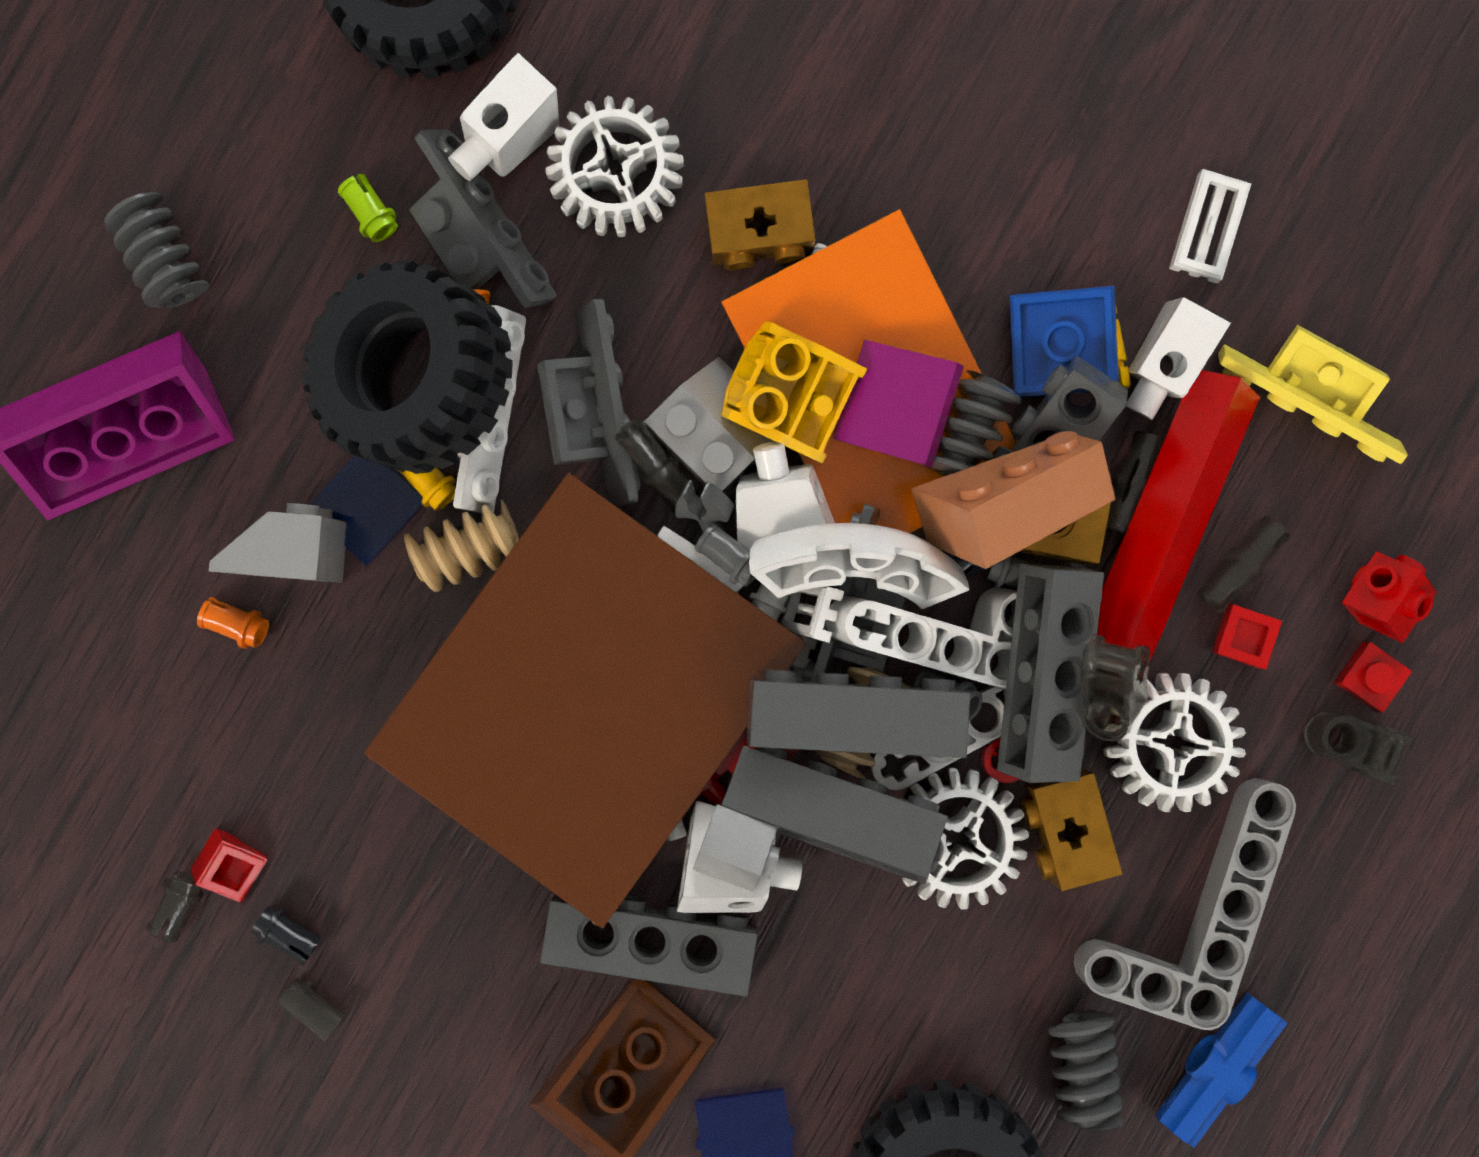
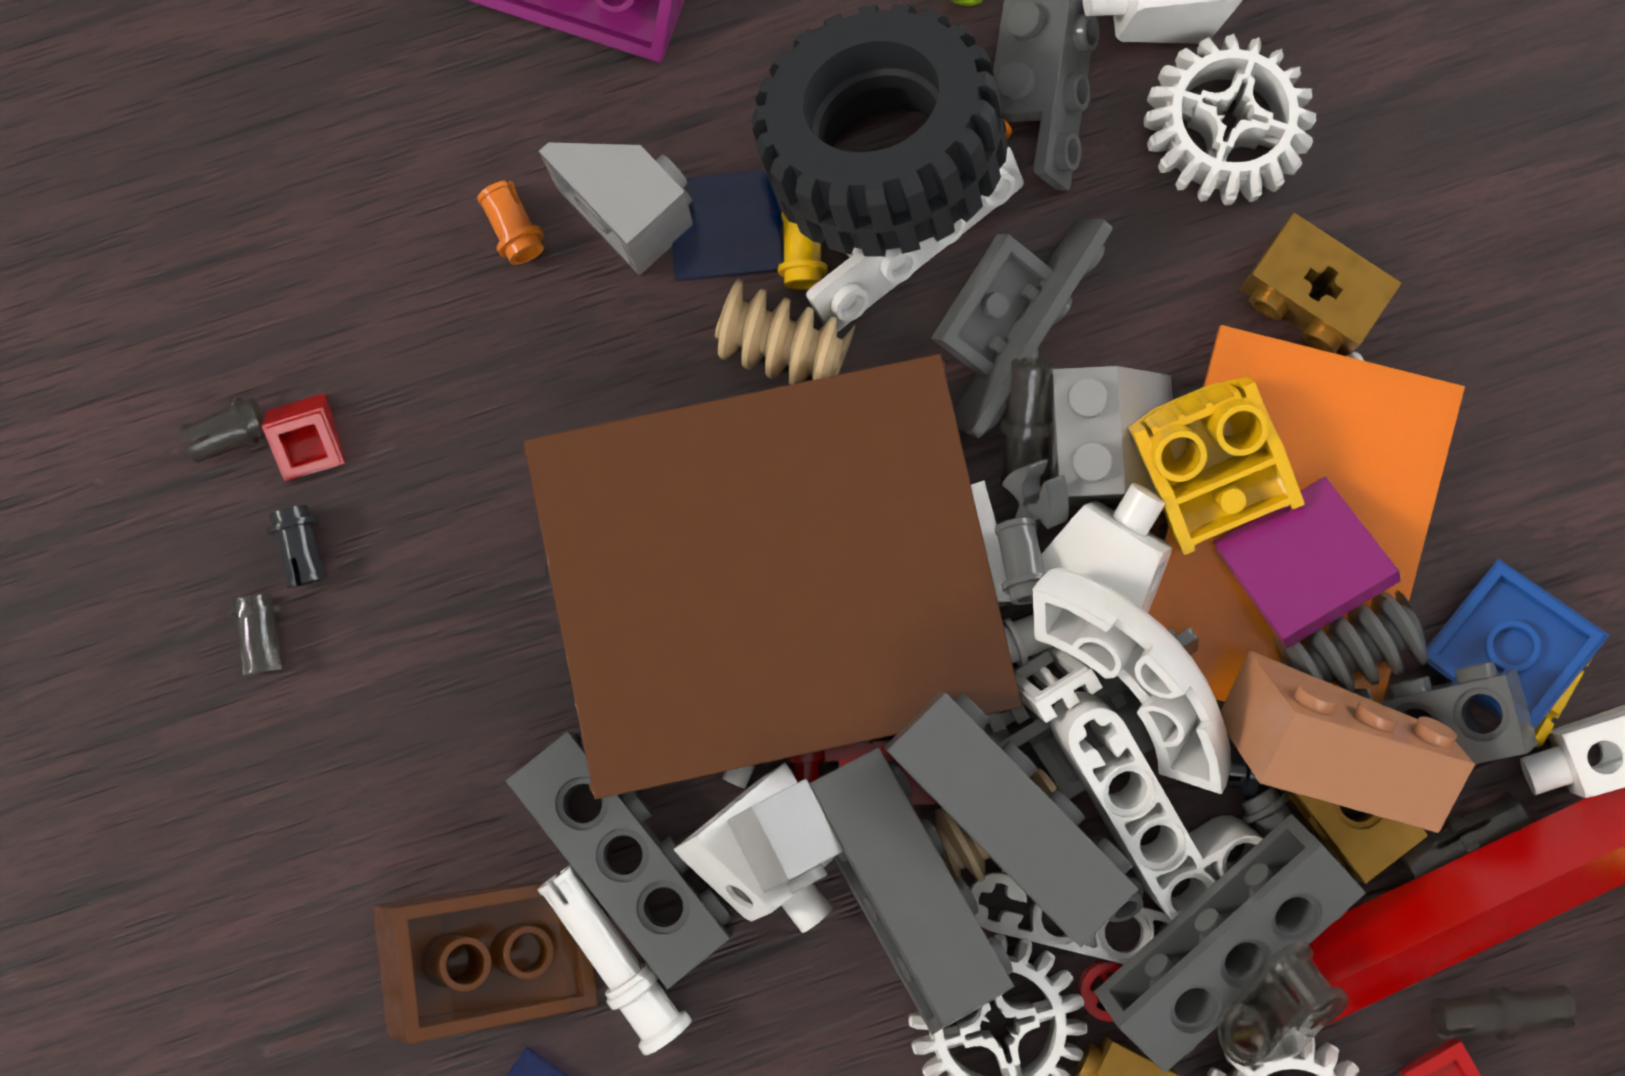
camera: 45 degrees right, 5 degrees down
(721, 1010) = (630, 984): none -> white pin

